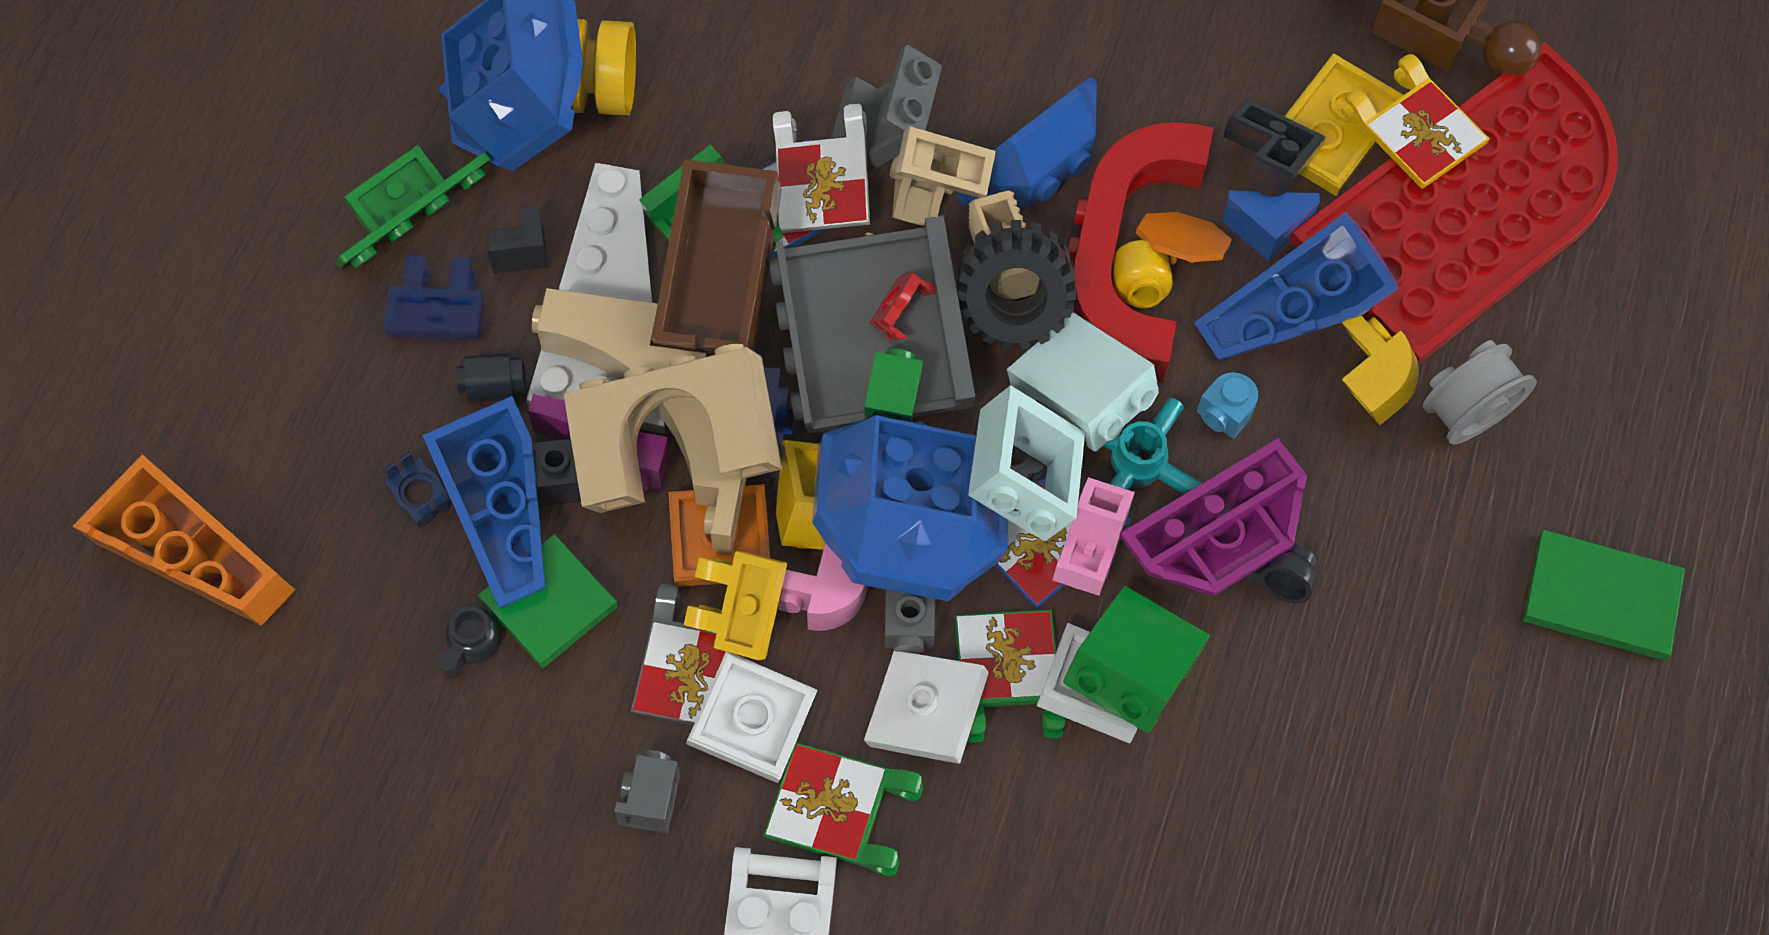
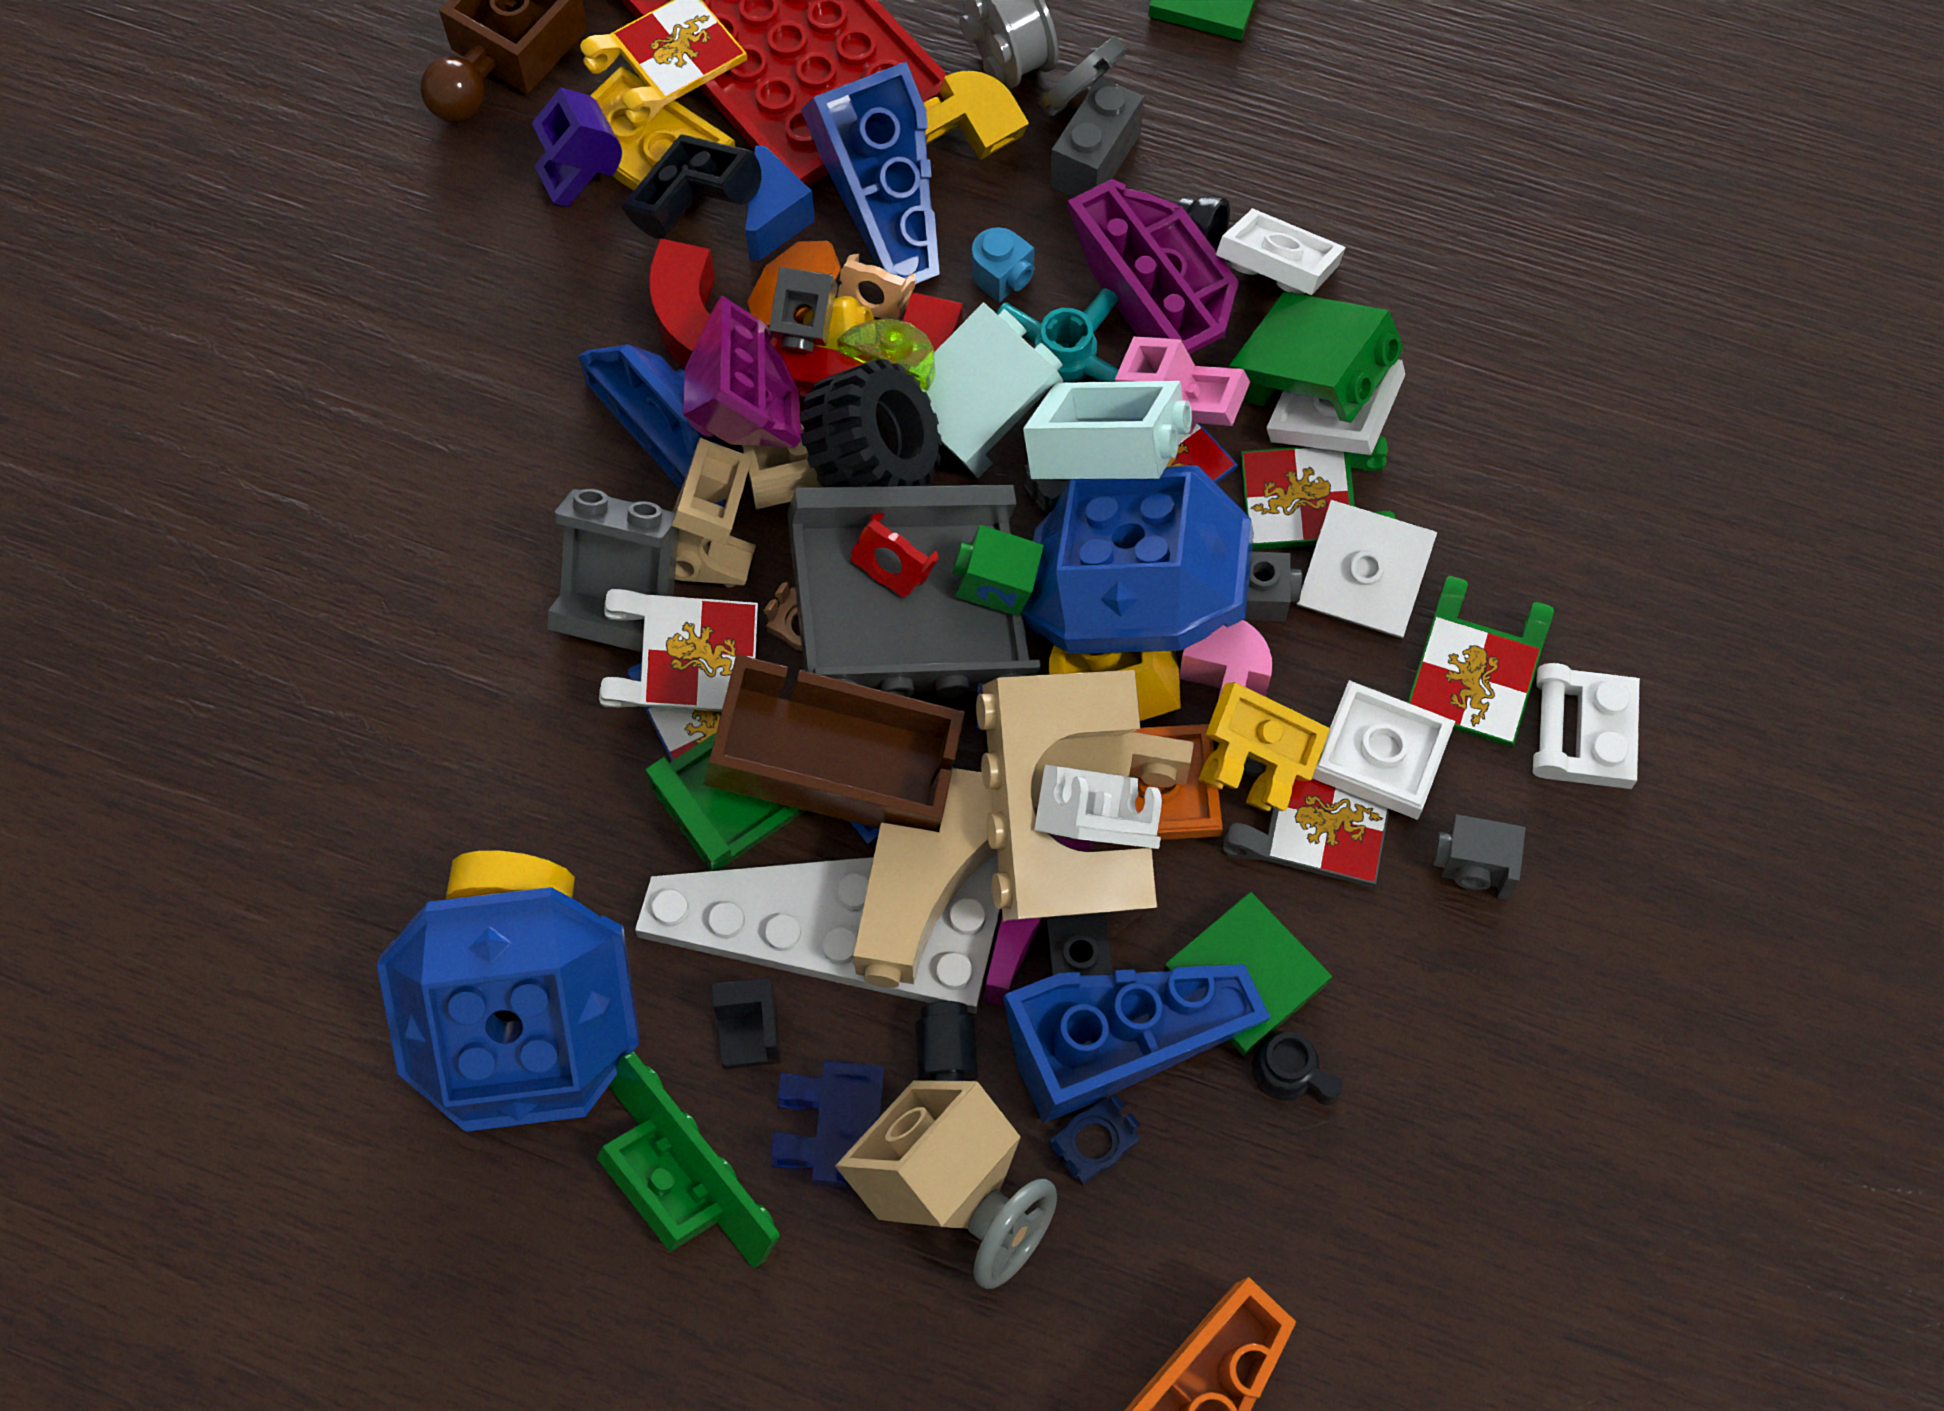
camera: 85 degrees left, 0 degrees up
(380, 361) = (942, 1164): none -> tan piece
(652, 446) = (1097, 807): none -> white hinge
(1049, 180) = (740, 383): none -> magenta wedge
(1109, 303) = (892, 341): none -> clear neon green plate
(1136, 225) = (796, 291): none -> dark grey brick
(1188, 299) = (895, 288): none -> light nougat piece
(1257, 636) = (1280, 251): none -> white plate
(1303, 56) = (575, 143): none -> dark purple brick
(1369, 479) = (1096, 138): none -> dark grey brick
(1434, 460) = (1082, 76): none -> flat silver tile

